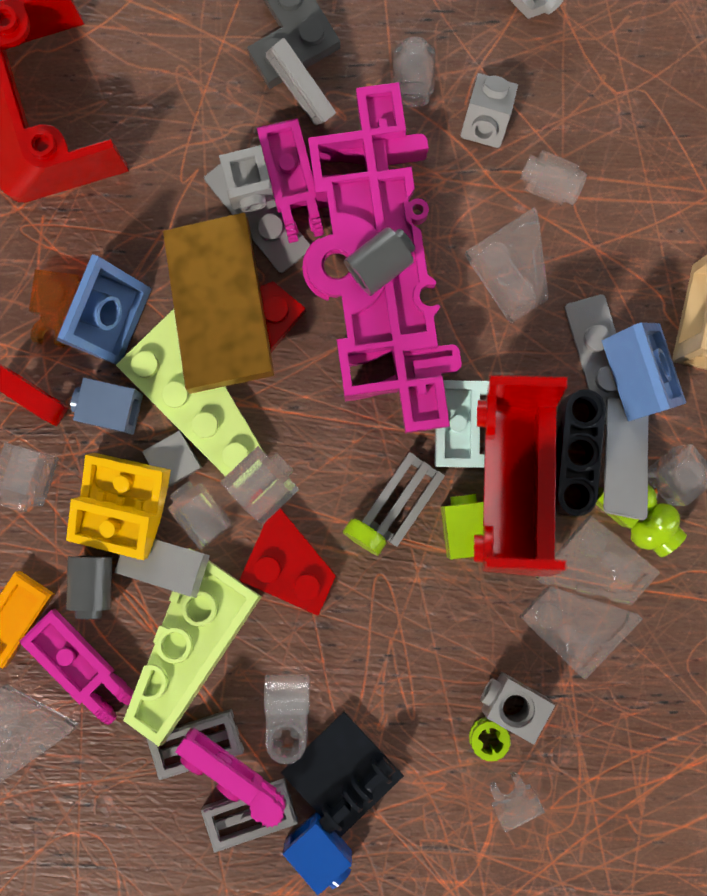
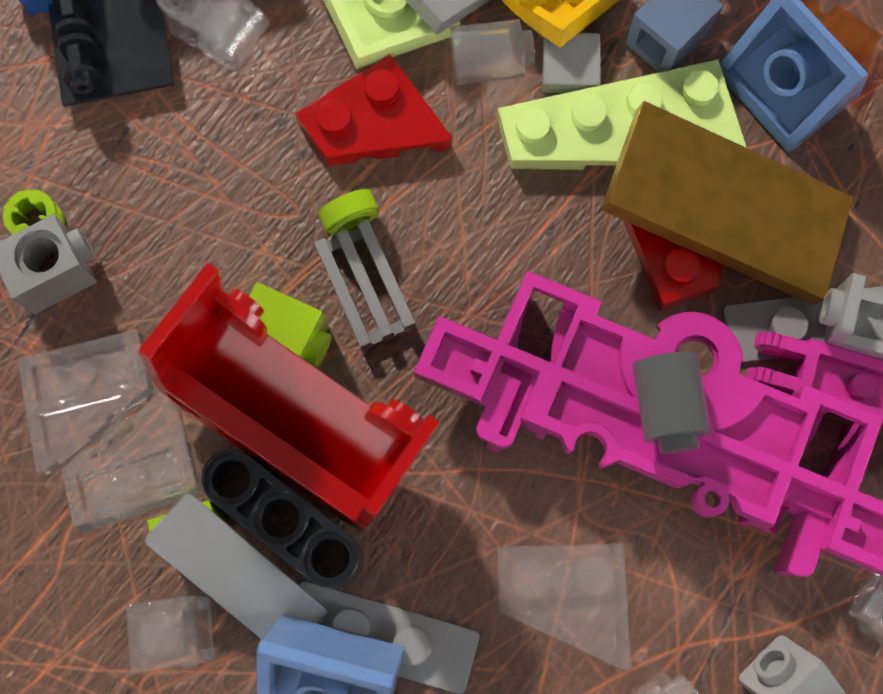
camera: 125 degrees right, 10 degrees down
(260, 484) = (481, 128): clear brick -> none
(460, 442) = (390, 376): light aqua plate -> none
(660, 528) = (130, 566): lime animal -> none

